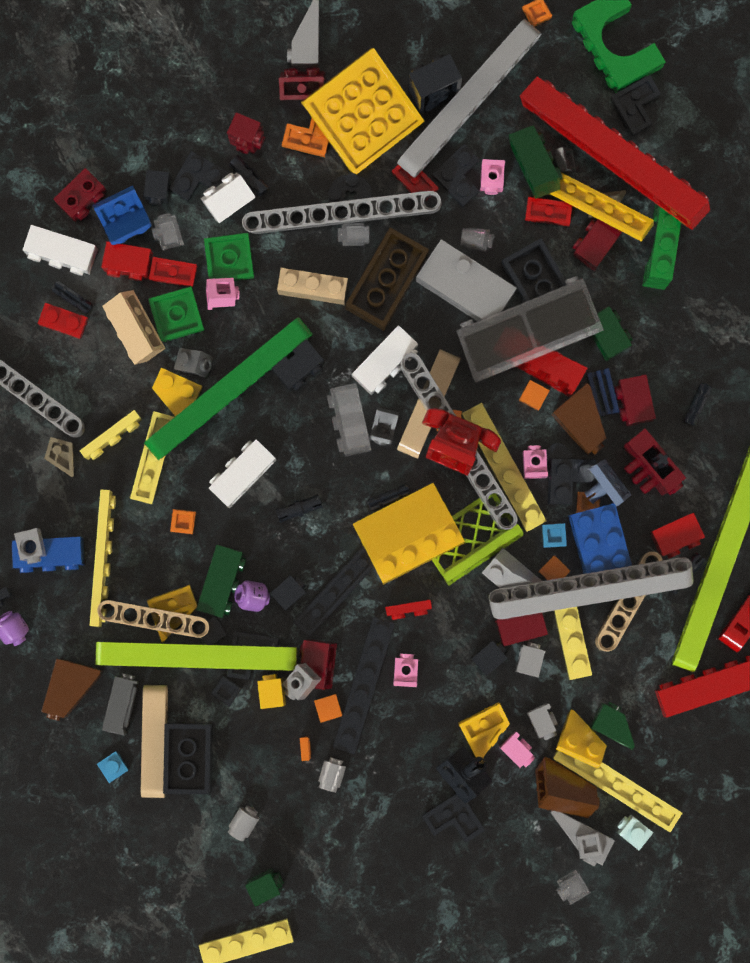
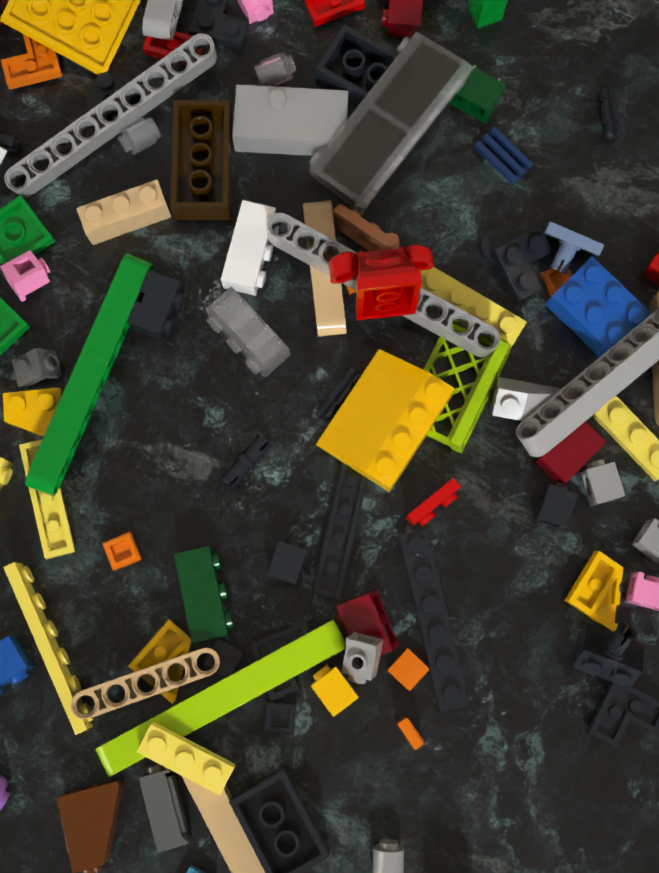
camera: 30 degrees left, 5 degrees down
(152, 681) = (186, 758): none -> light yellow plate
(241, 473) = (158, 458): white brick -> none
(252, 596) = (248, 590): medium lavender head -> none
(331, 774) = (457, 745): light grey brick -> none
(384, 426) = (289, 318): dark grey bracket -> none
(406, 680) = (470, 587): bright pink brick -> none
(470, 399) = (362, 232): none -> nougat plate
(534, 395) = (432, 198): orange tile -> none
(534, 471) = (476, 276): bright pink brick -> none
(554, 535) = (544, 332): dark azure plate -> none
(554, 569) = (565, 369): orange tile -> none
(555, 371) = (441, 156): red wedge -> none
(582, 421) = (501, 194): reddish brown slope -> none
(635, 400) = (544, 142): dark red brick -> none
(653, 464) = (607, 193): dark red piece -> none

